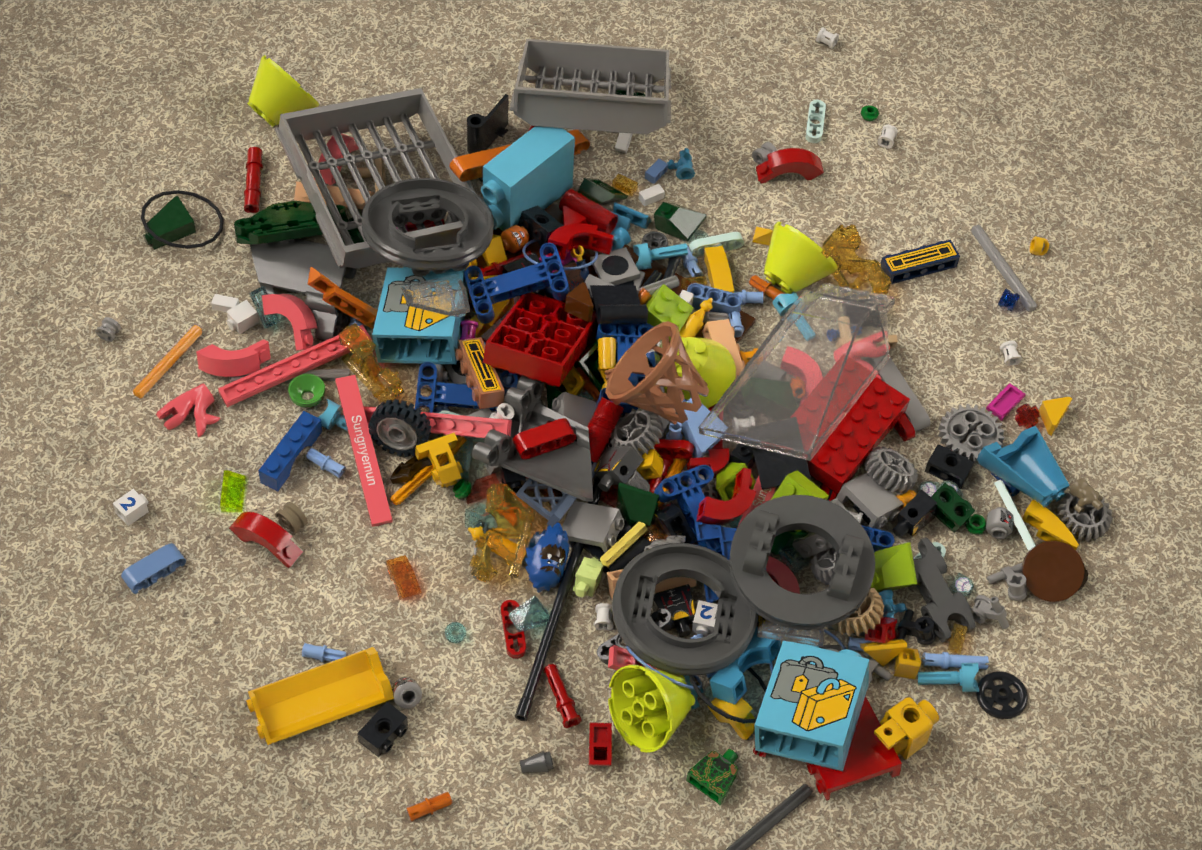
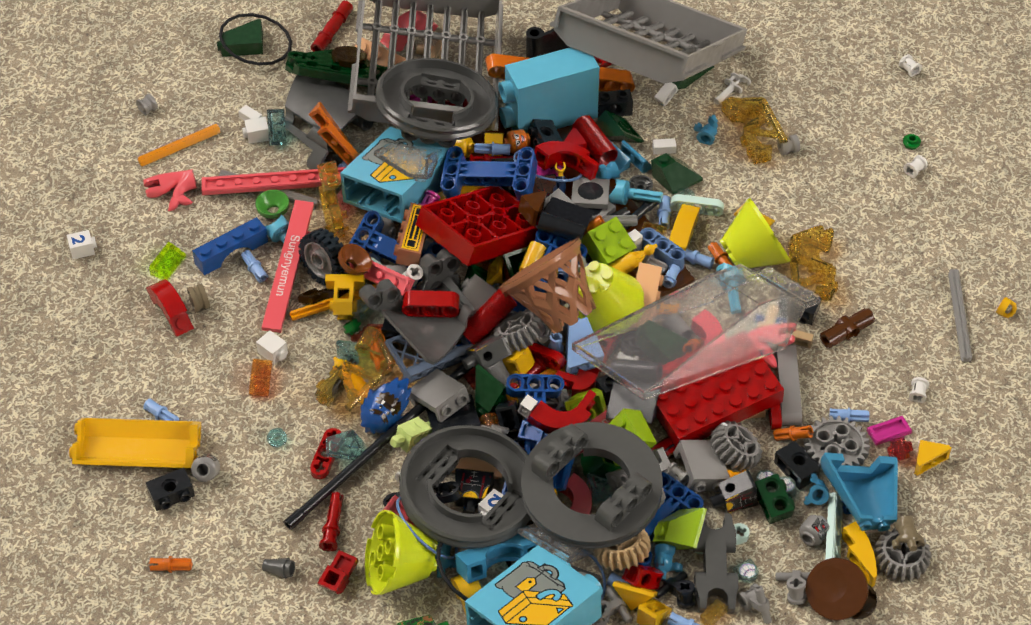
camera: 30 degrees right, 5 degrees down
(152, 567) = (70, 296): medium blue beam -> none
(233, 363) = (228, 162): coral arch -> none
(296, 206) = (347, 56): none -> dark brown tile
(297, 313) = (297, 141): coral arch -> none
(397, 541) = (272, 347): none -> white brick
(442, 418) = (357, 256): none -> dark orange piece
(498, 255) = (494, 149): none -> light blue axle
(586, 166) = (616, 102): none -> black brick
(623, 544) = (456, 418): light yellow axle -> none
(625, 184) = (645, 130): clear yellow piece -> none
(656, 171) = (680, 128): medium blue piece -> none
(679, 112) = (732, 86): none -> white piece
(695, 507) = (527, 406): none -> white piece
(720, 133) = (754, 113): none -> clear yellow piece
(790, 161) = (808, 157): red arch -> none
(815, 116) = (855, 126): light aqua beam -> none
(917, 316) = (847, 327): none -> reddish brown piece
(920, 261) = (878, 282): brick -> none
(930, 437) = (793, 433): none -> orange axle
(964, 399) = (852, 415): none -> light blue axle
(978, 519) = (792, 518): green plate -> none
(987, 487) = (818, 493): none -> dark azure piece
(1008, 300) = (945, 343): clear blue wheel -> none

